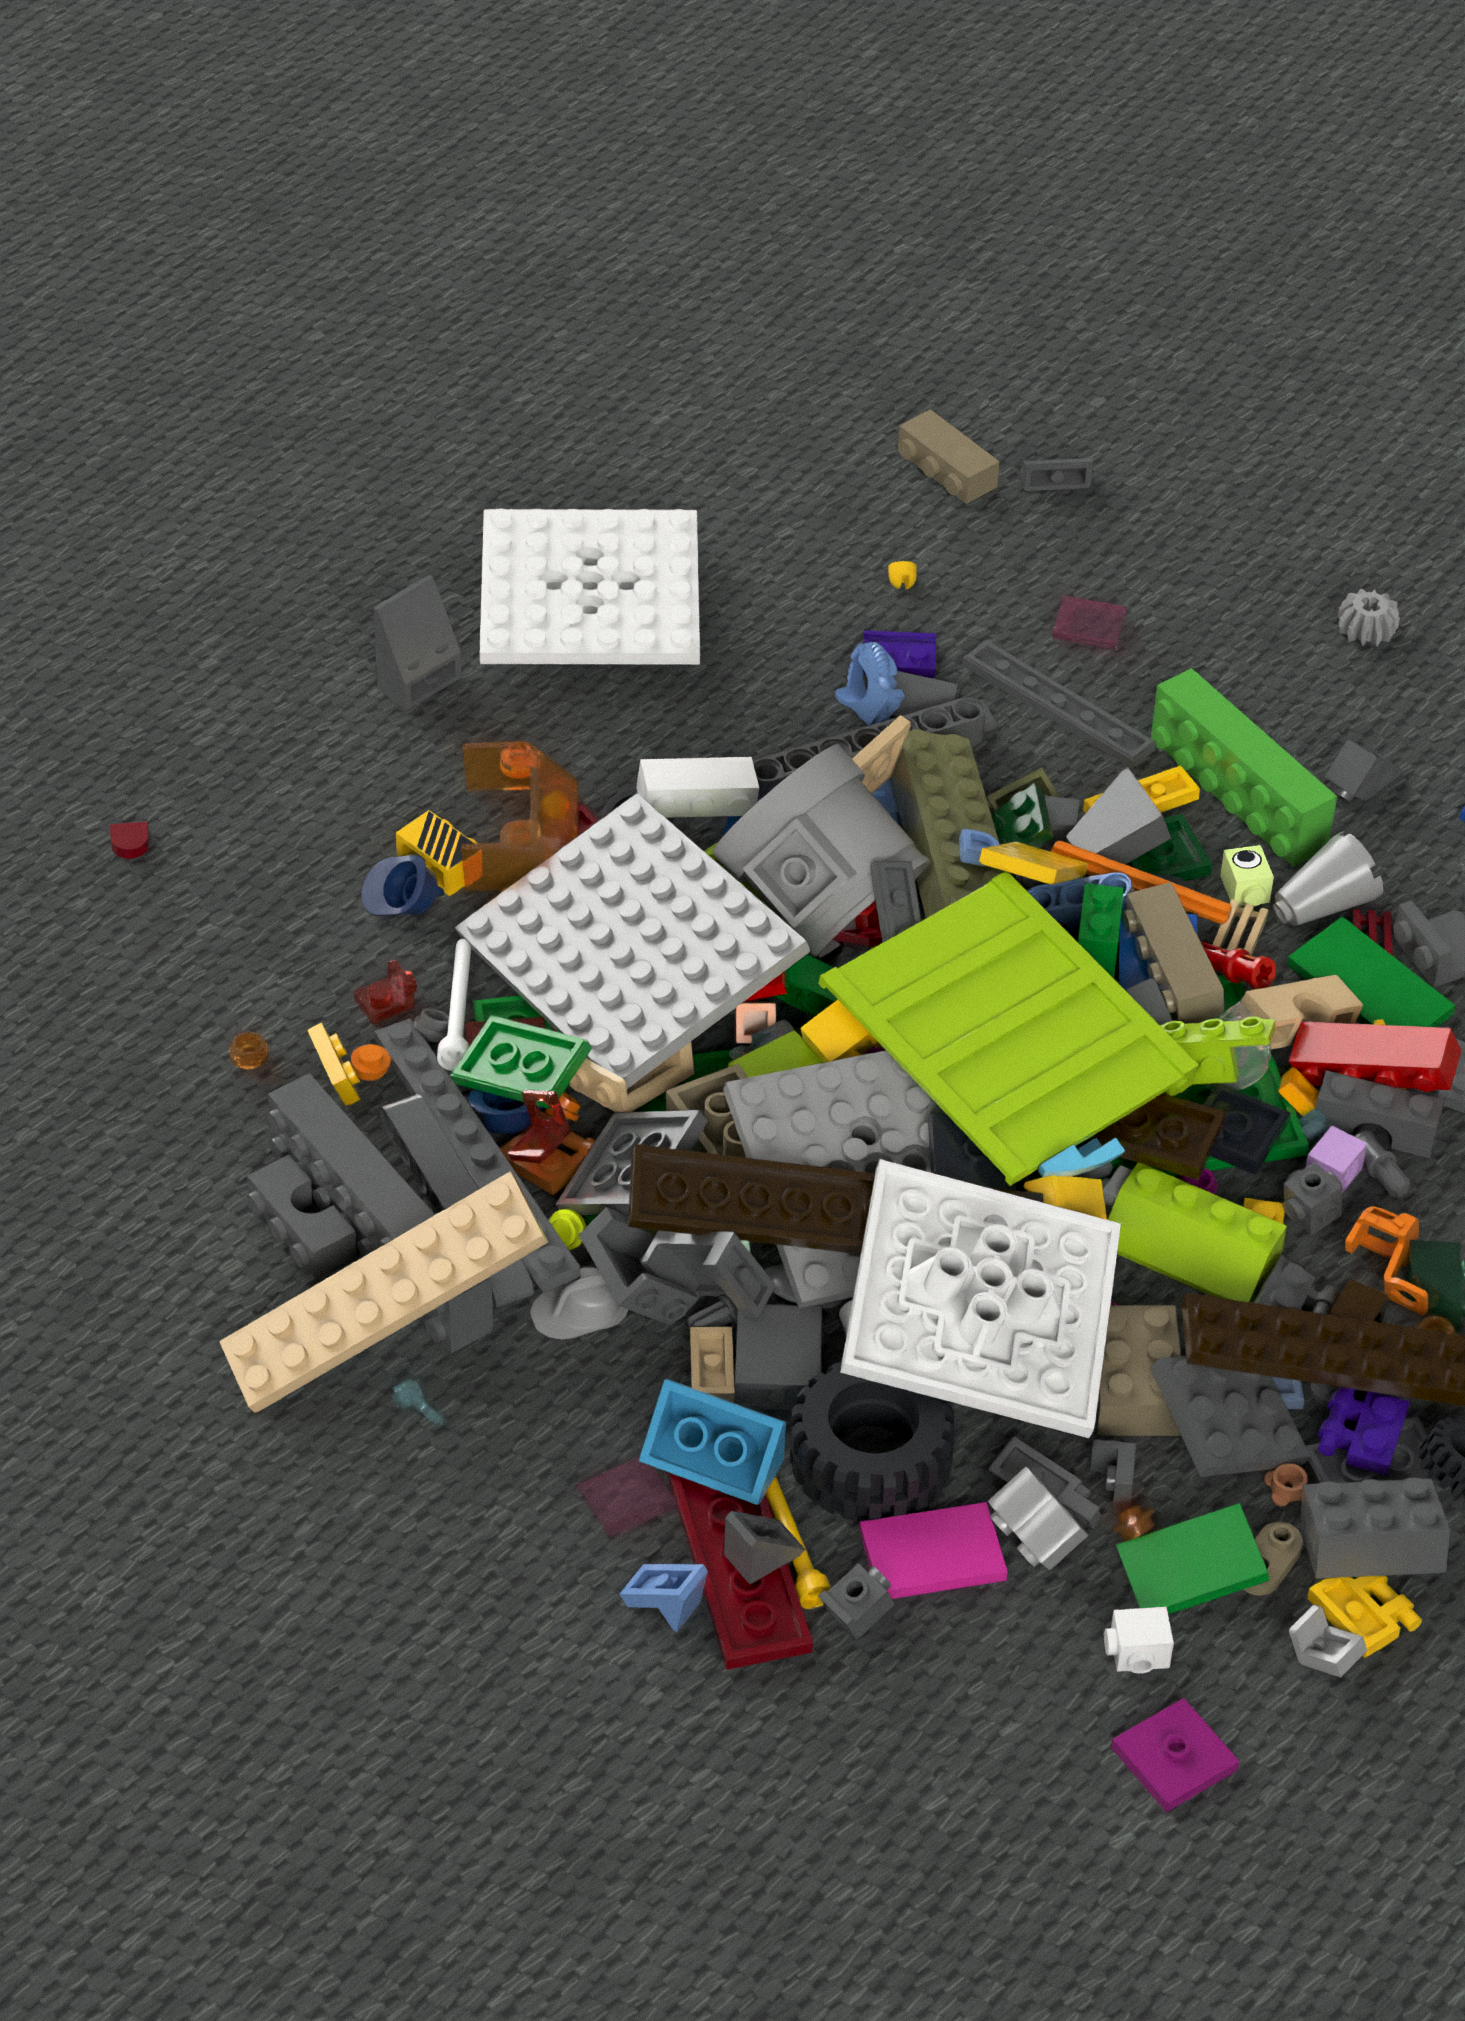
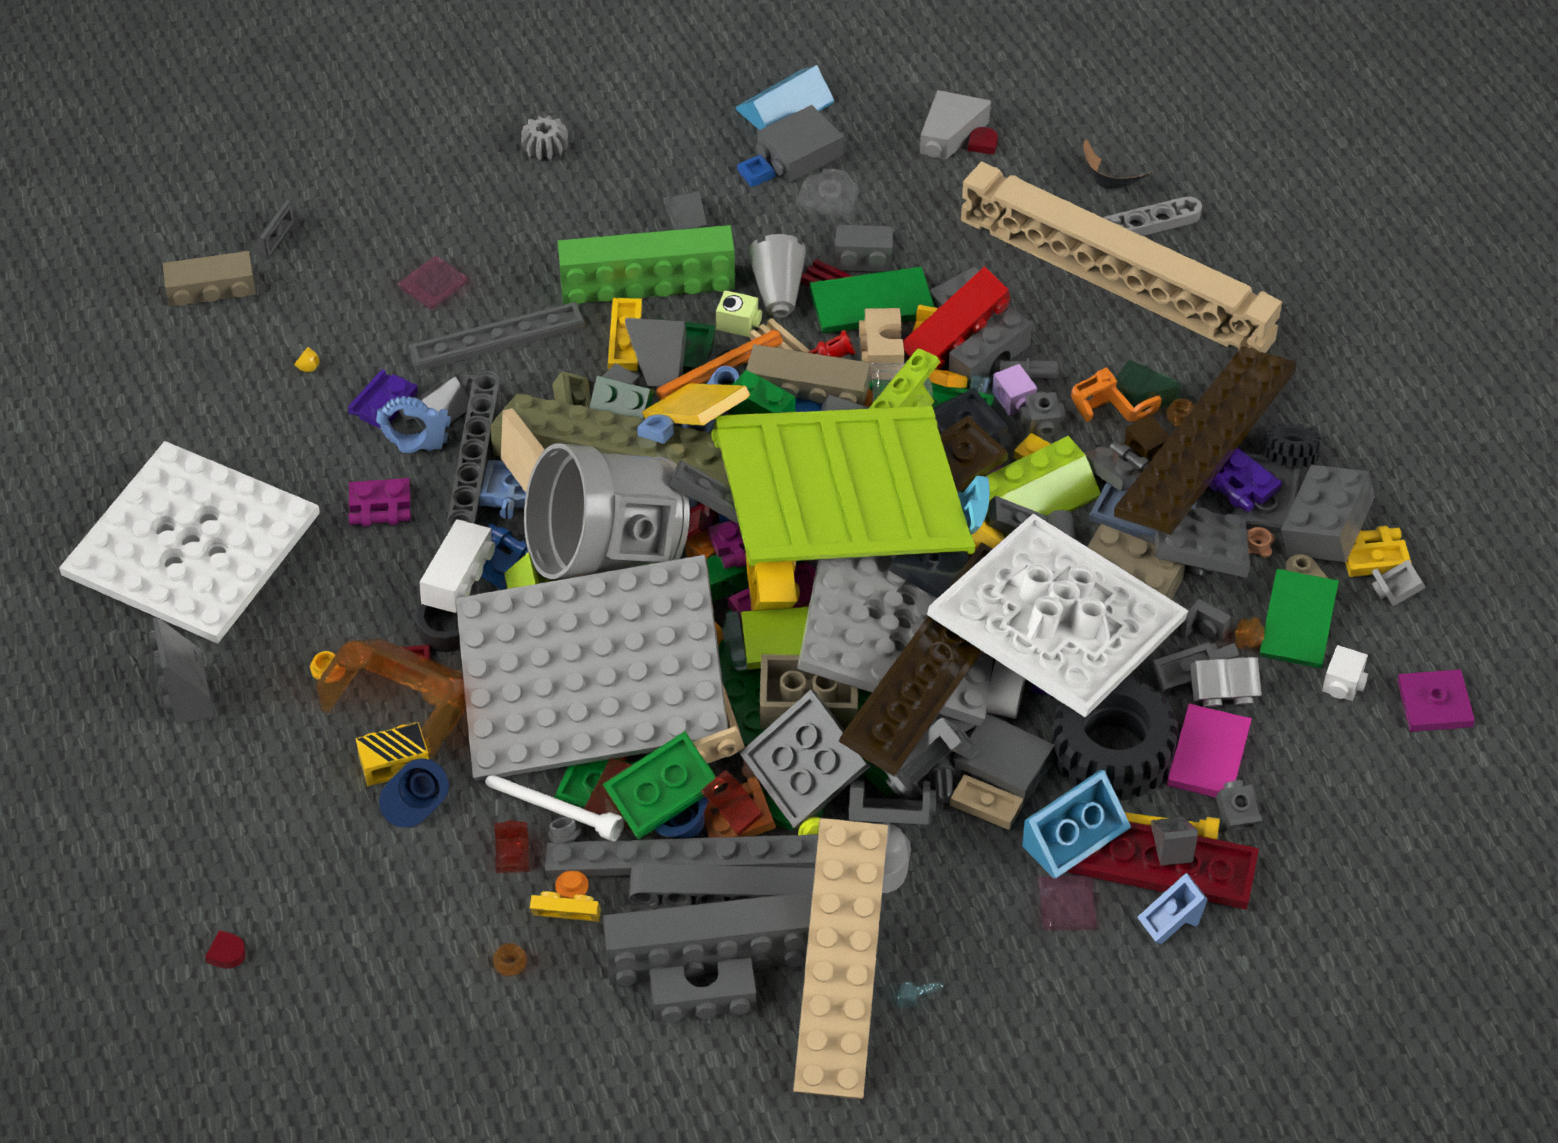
camera: 60 degrees left, 5 degrees up
(769, 709) = (379, 495): none -> magenta plate
(1138, 1257) = (1008, 516): none -> dark grey plate

